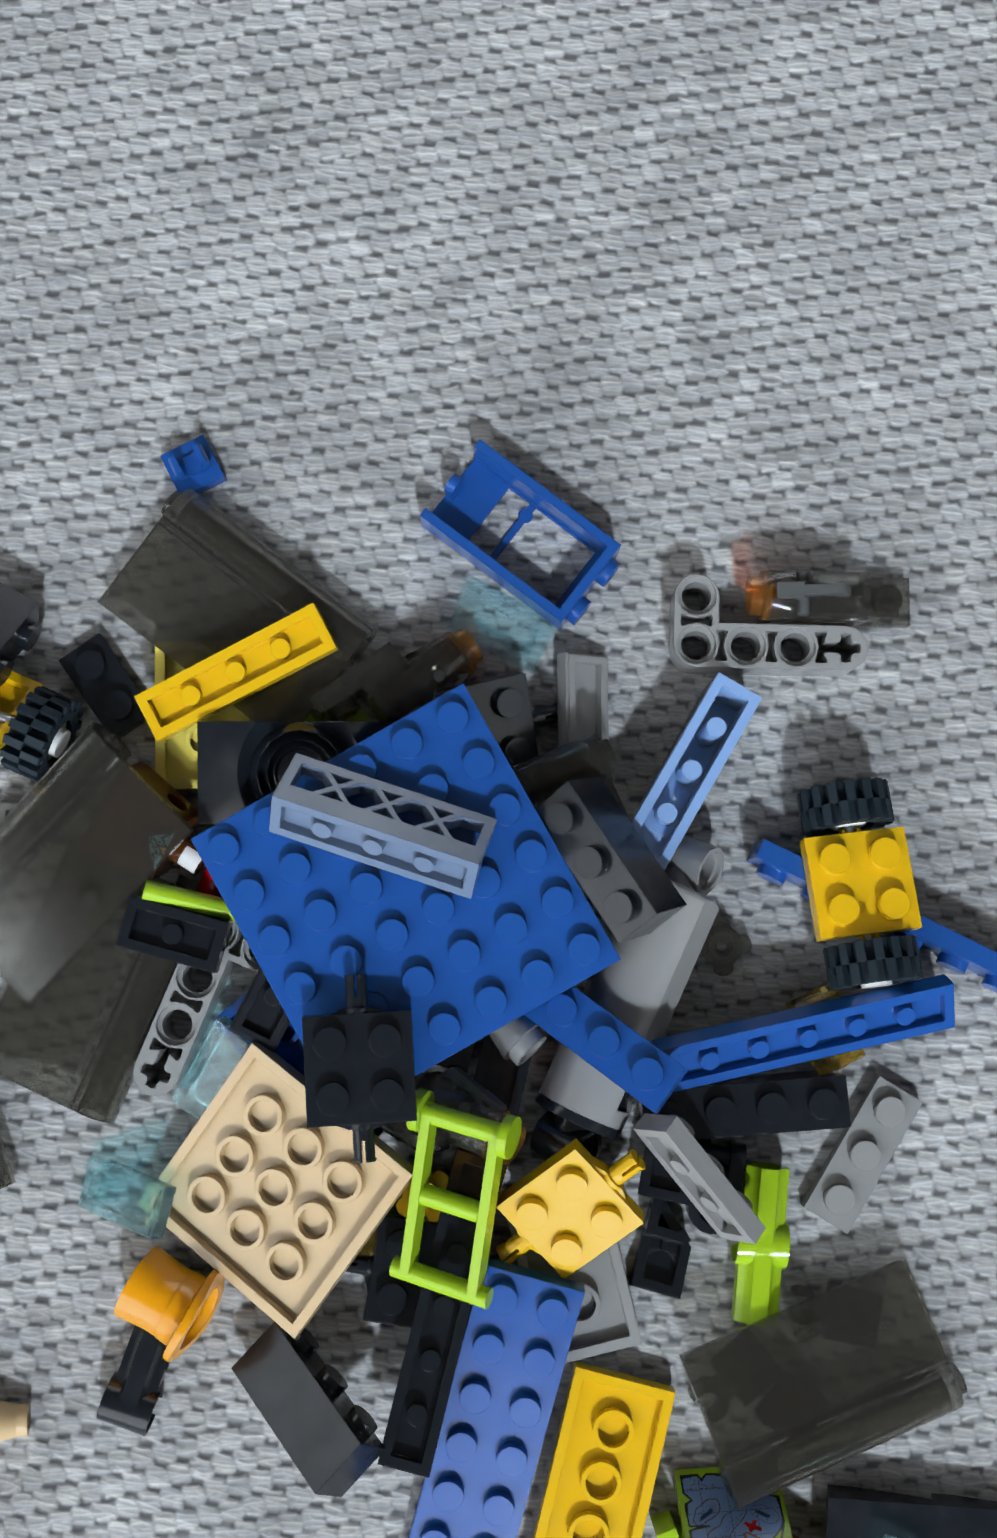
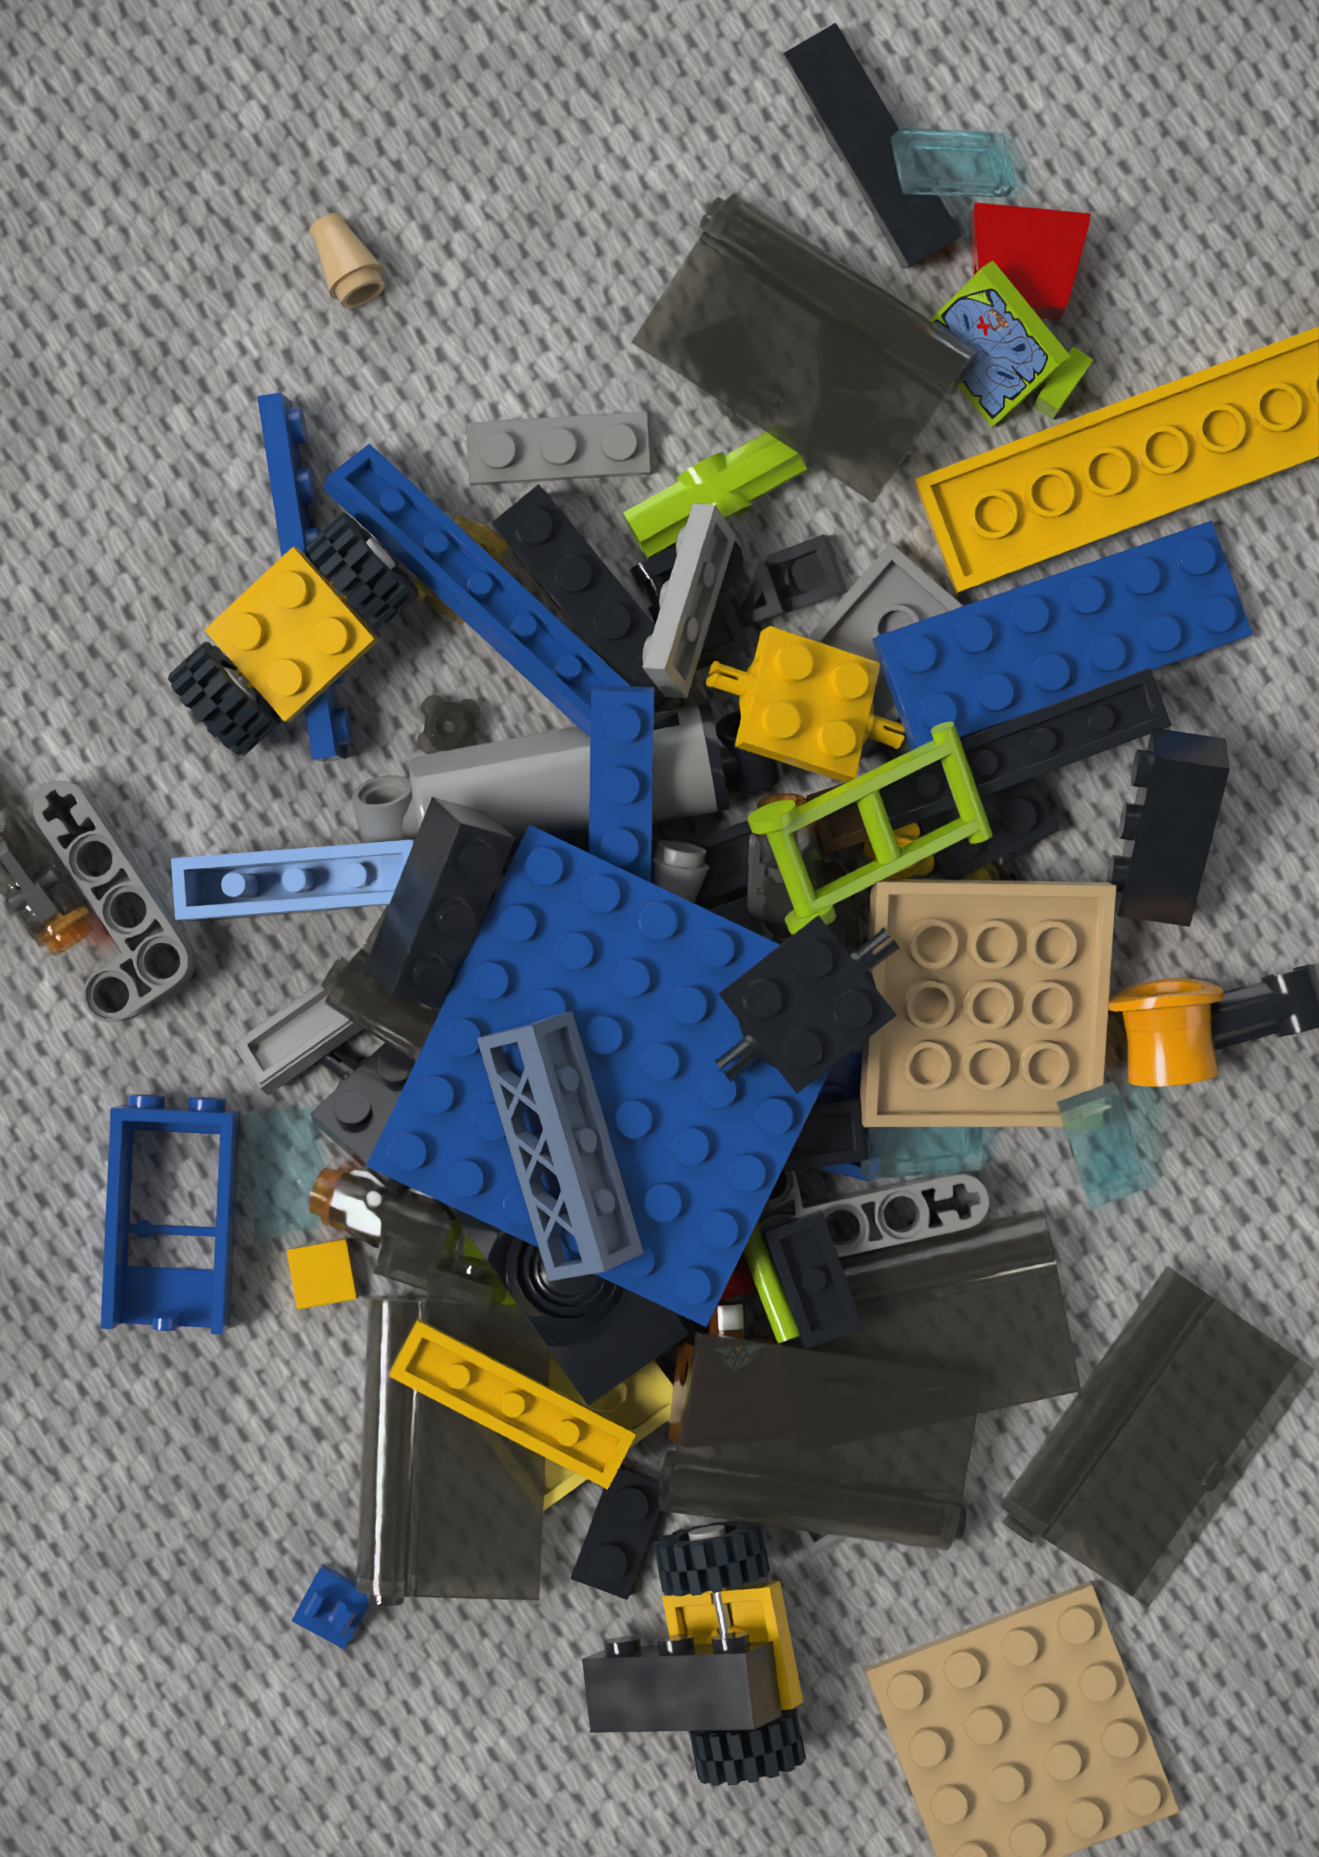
camera: 120 degrees left, 5 degrees up
(414, 609) = (322, 1273): none -> yellow tile

